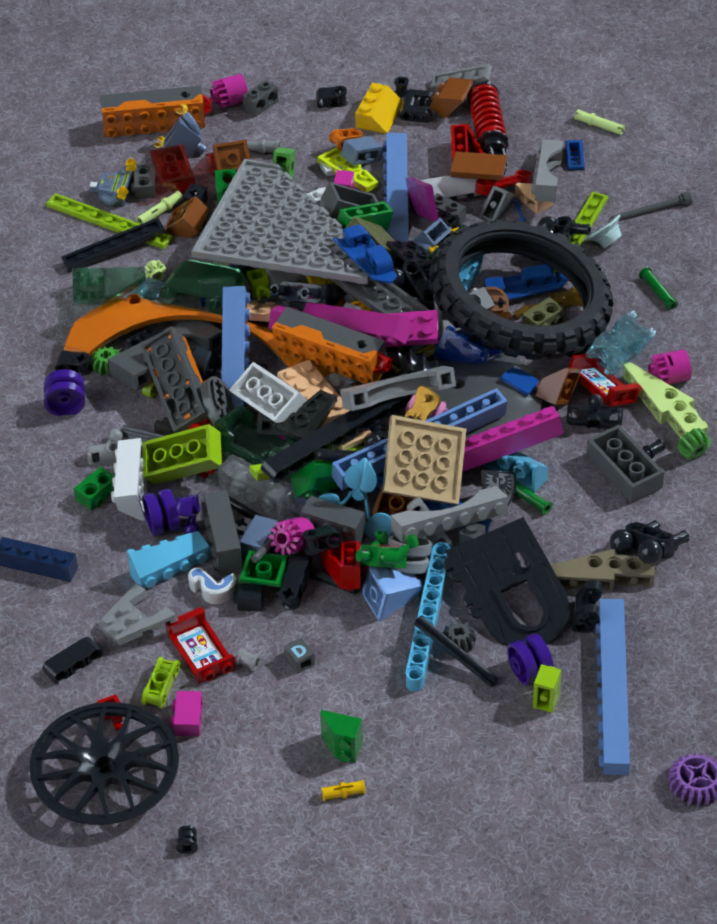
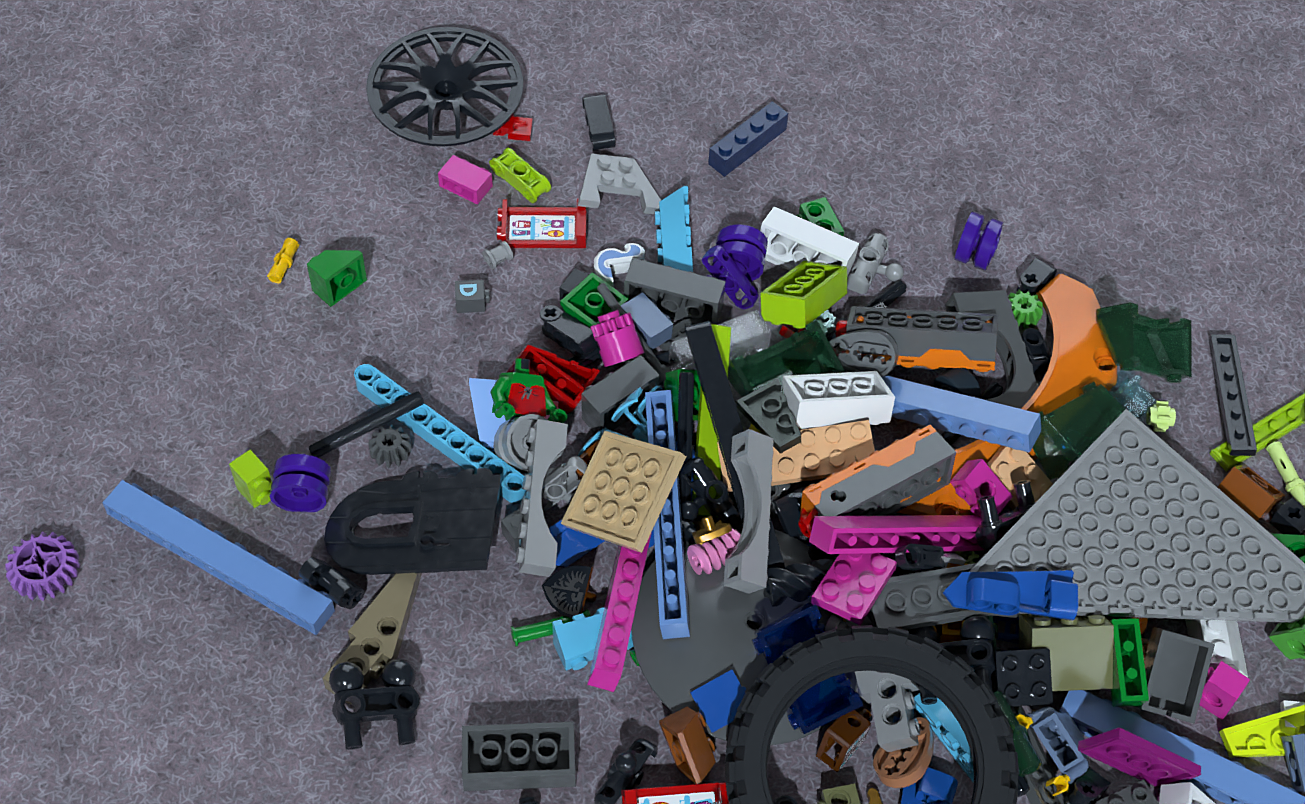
camera: 115 degrees right, 10 degrees up
(187, 840) = (323, 122): black bush -> none
(318, 539) = (589, 356): black piece -> none
(373, 307) = (923, 557): none -> black piece

